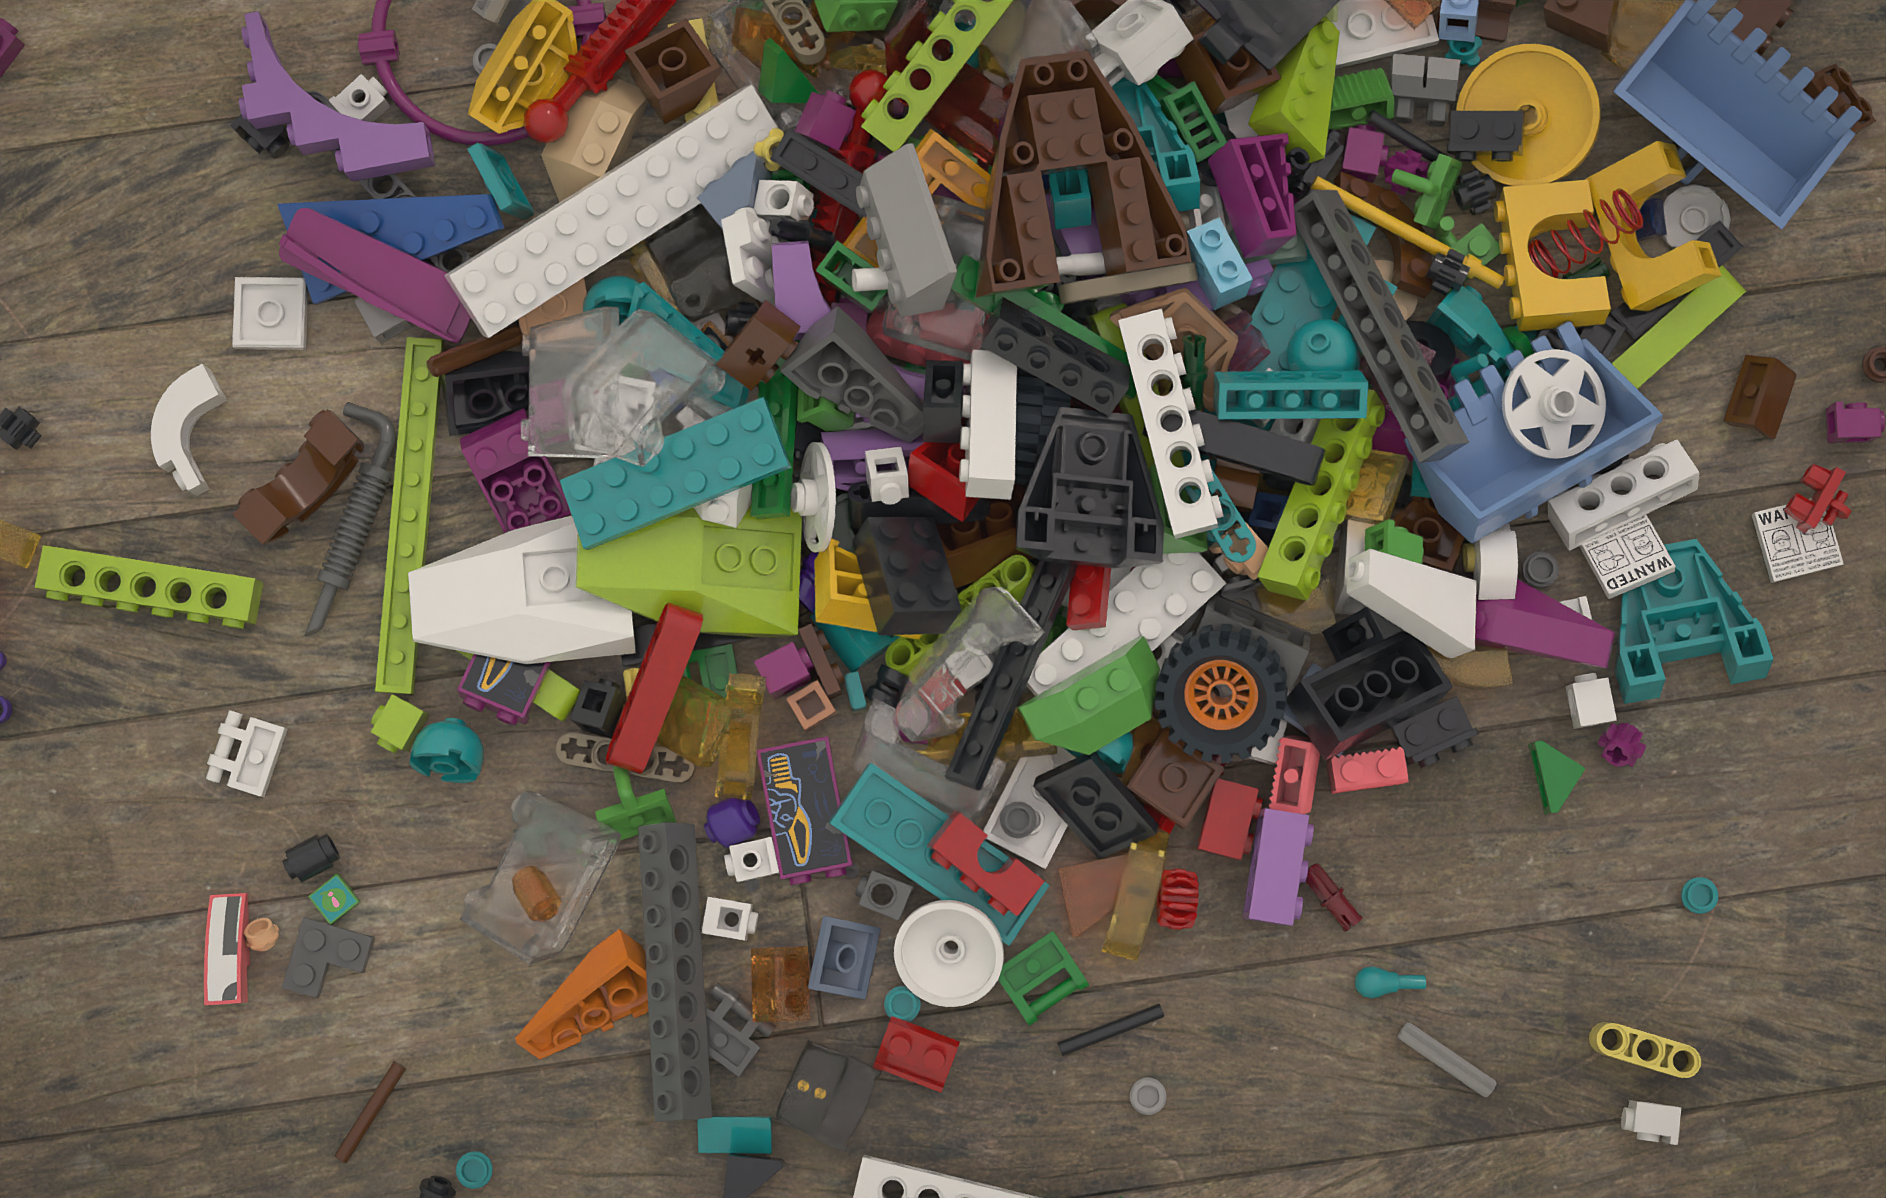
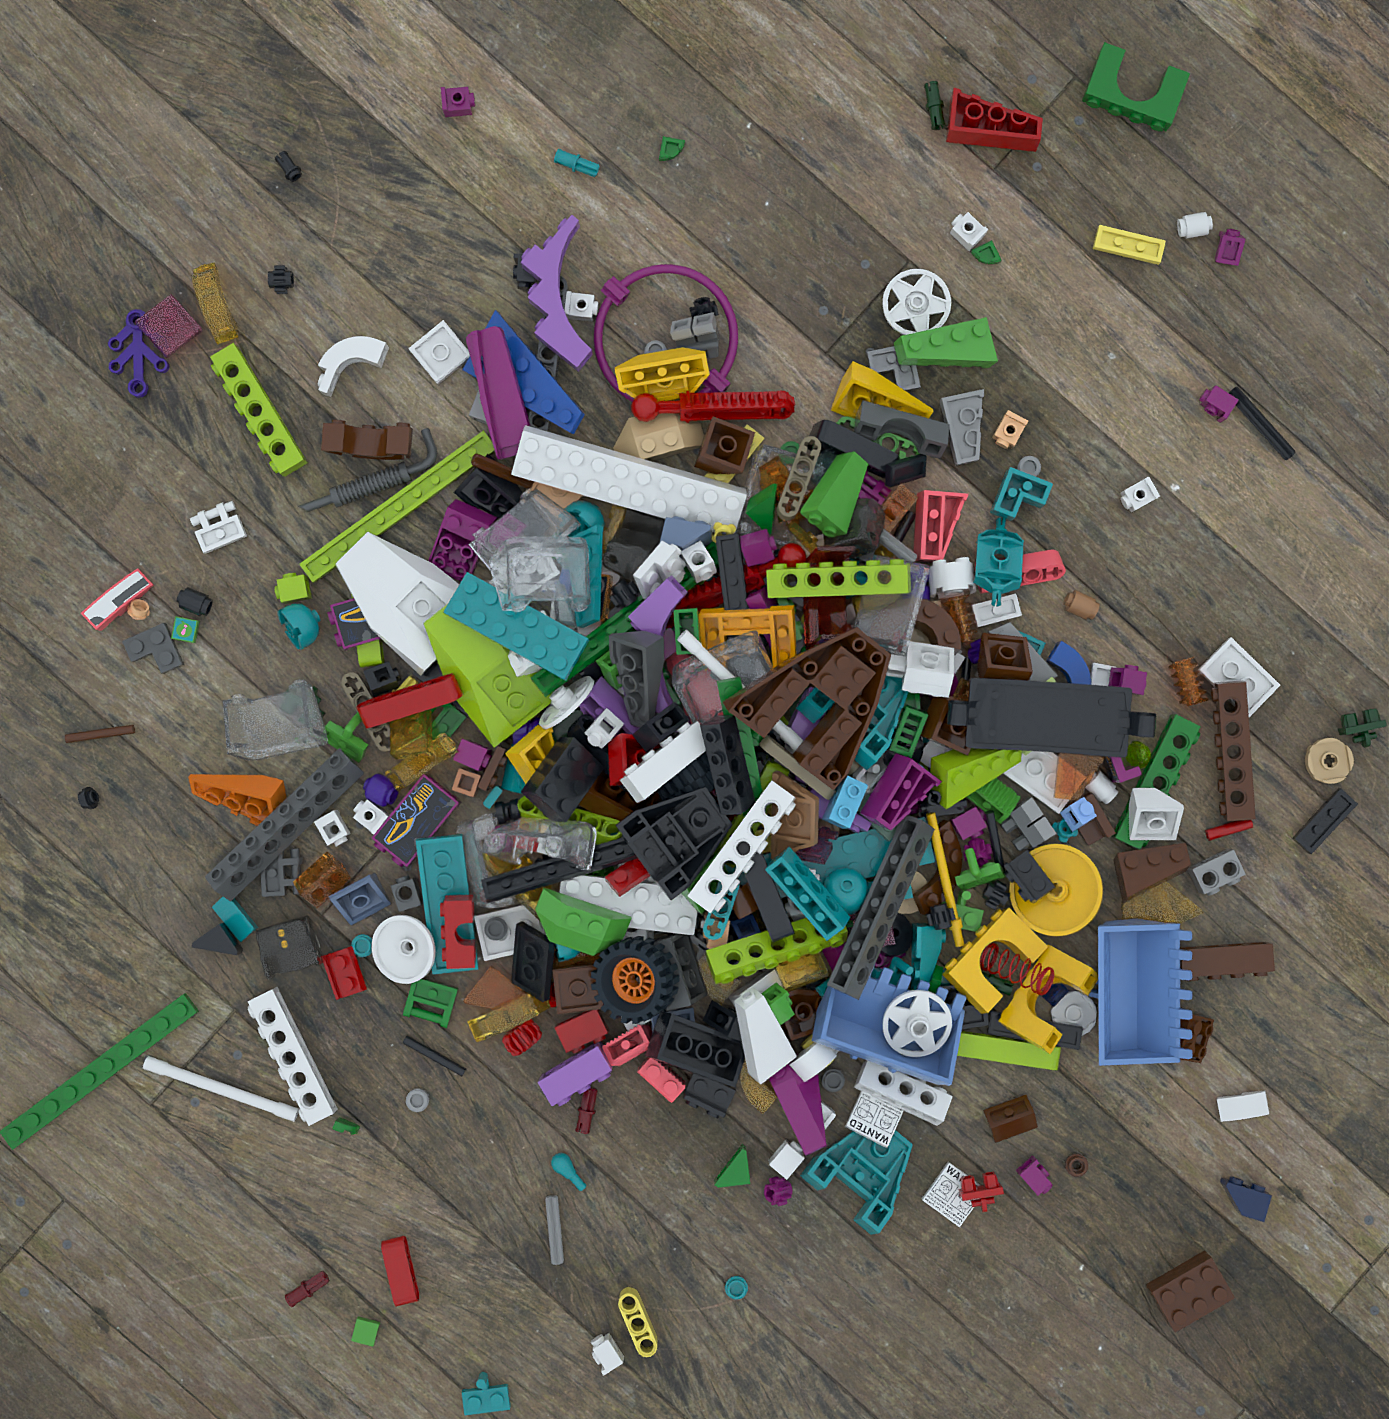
camera: 50 degrees right, 5 degrees up
(474, 1170) = (114, 807): teal plate -> none
(501, 181) = (597, 411): teal plate -> none
(536, 894) = (264, 727): clear orange brick -> none
(759, 345) = (613, 614): reddish brown brick -> none
(796, 231) = (691, 585): black axle -> none
(907, 233) = (724, 642): light grey slope -> none
(1195, 368) = (782, 835): dark green pin -> none

